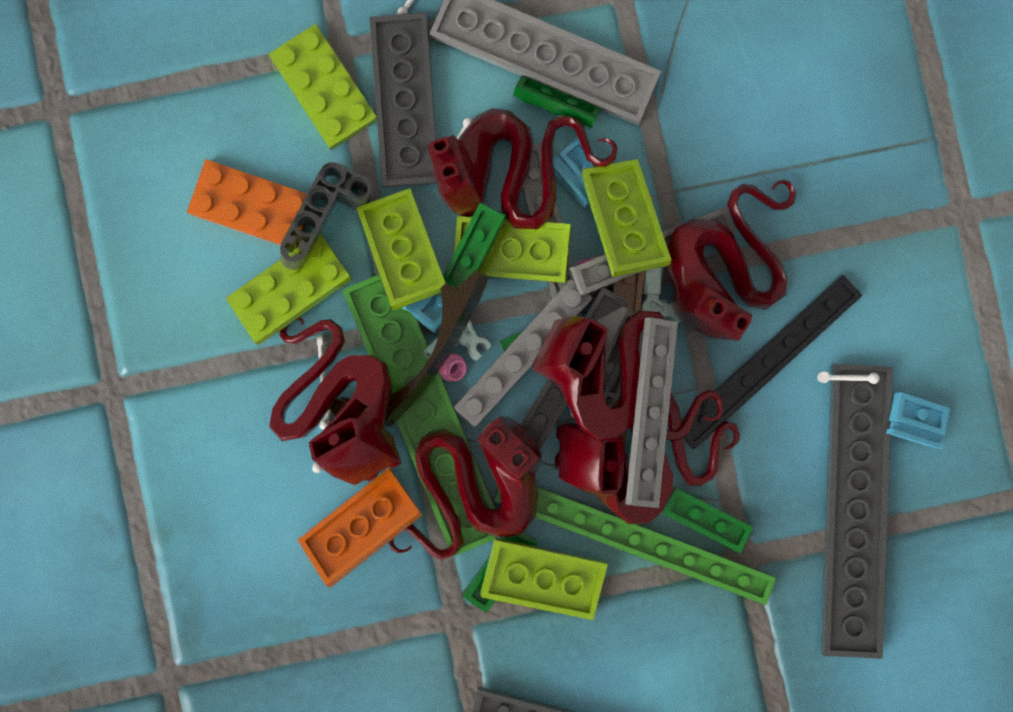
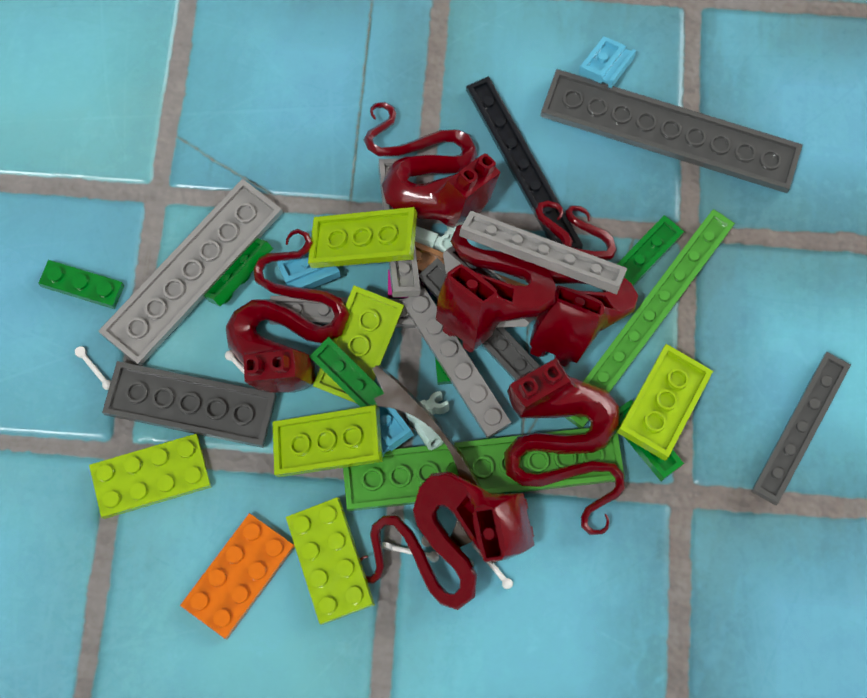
camera: 75 degrees left, 15 degrees down
(319, 216) = (273, 509): dark grey beam -> none
(359, 527) = (575, 555): orange plate -> none
(453, 368) = (452, 428): bright pink plate -> none
(824, 377) = (550, 122): white hinge -> none

